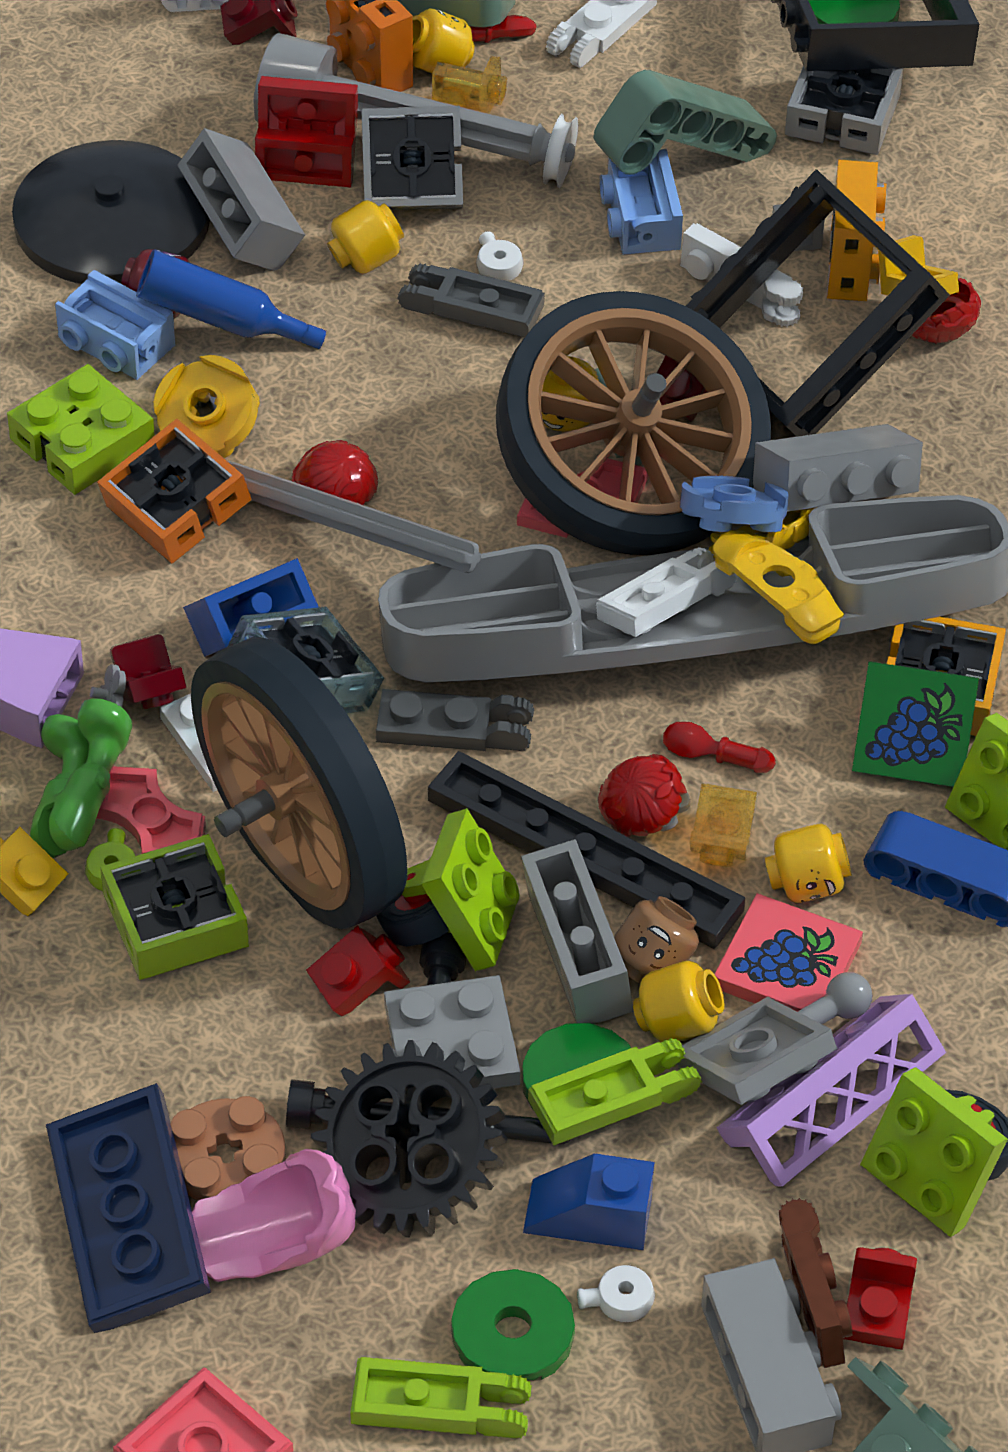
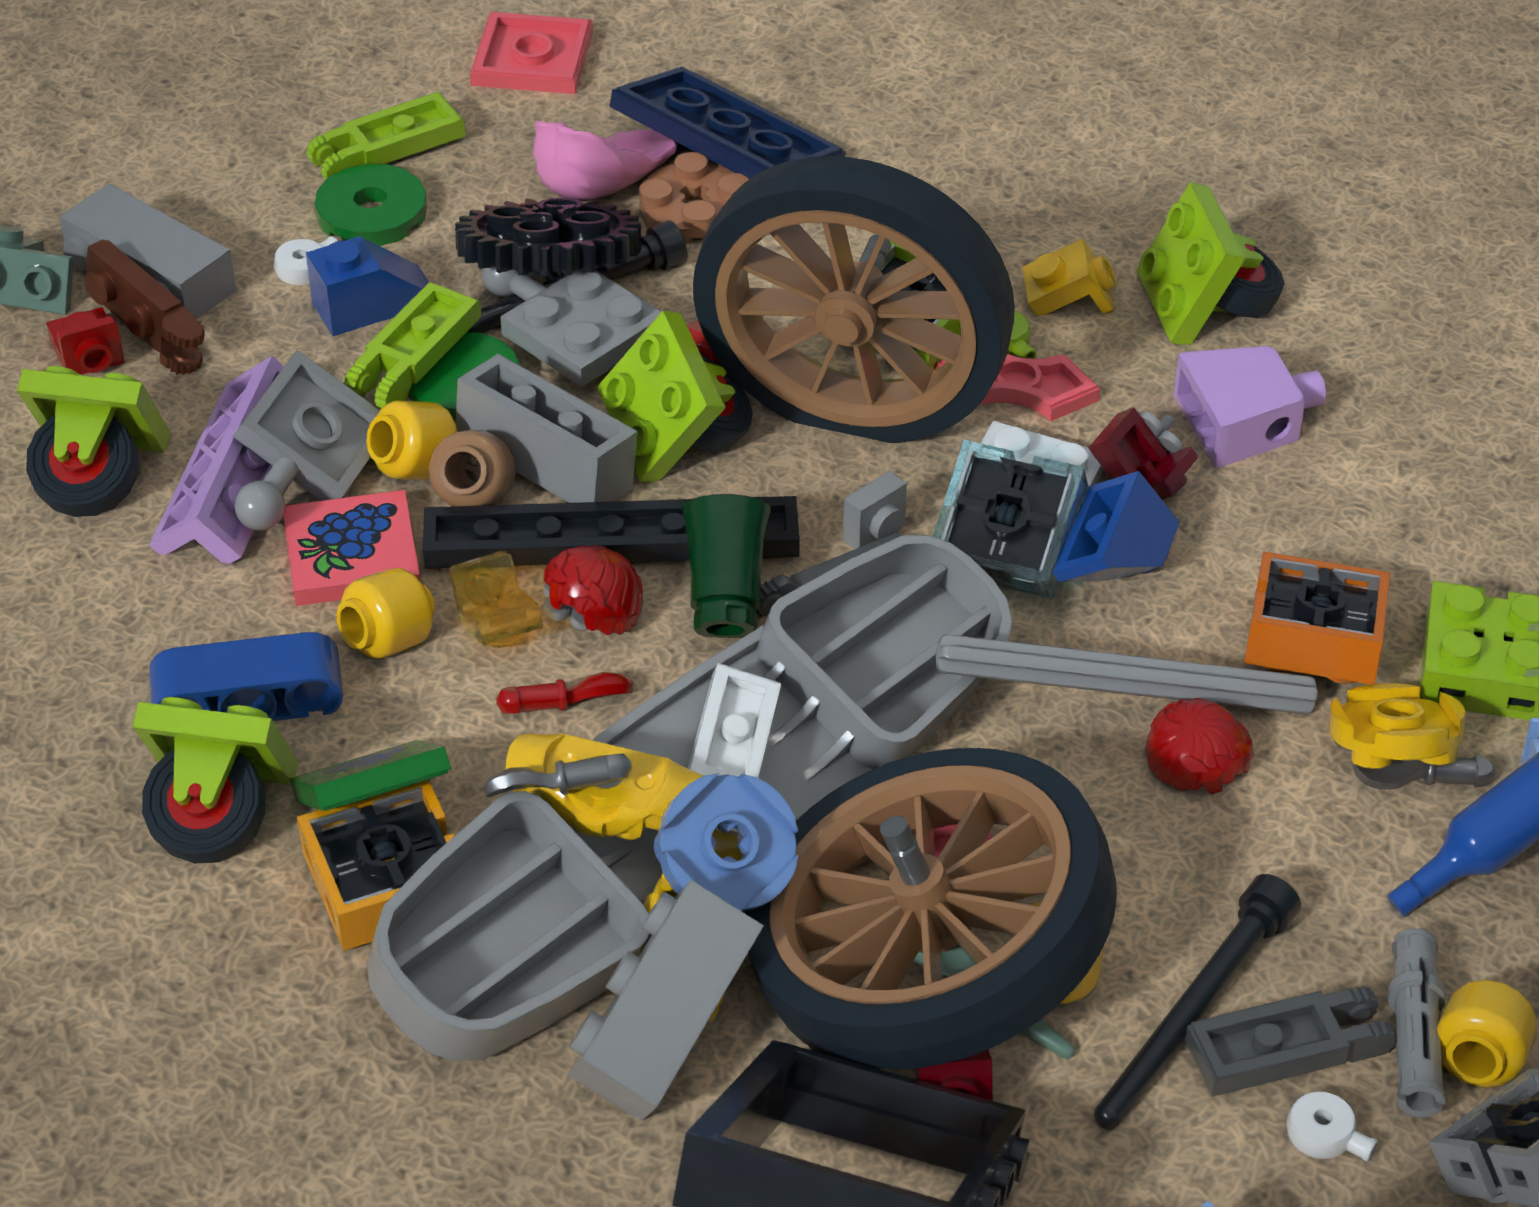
camera: 145 degrees right, 5 degrees down
(88, 755) = (1109, 366): bright green piece -> none
(379, 276) = (1417, 1000): none -> light grey pin
(387, 743) = (874, 510): none -> light grey plate
(408, 366) = (1264, 909): none -> black piece
(531, 742) = (726, 562): none -> dark green plant
(842, 585) = (567, 776): none -> flat silver piece

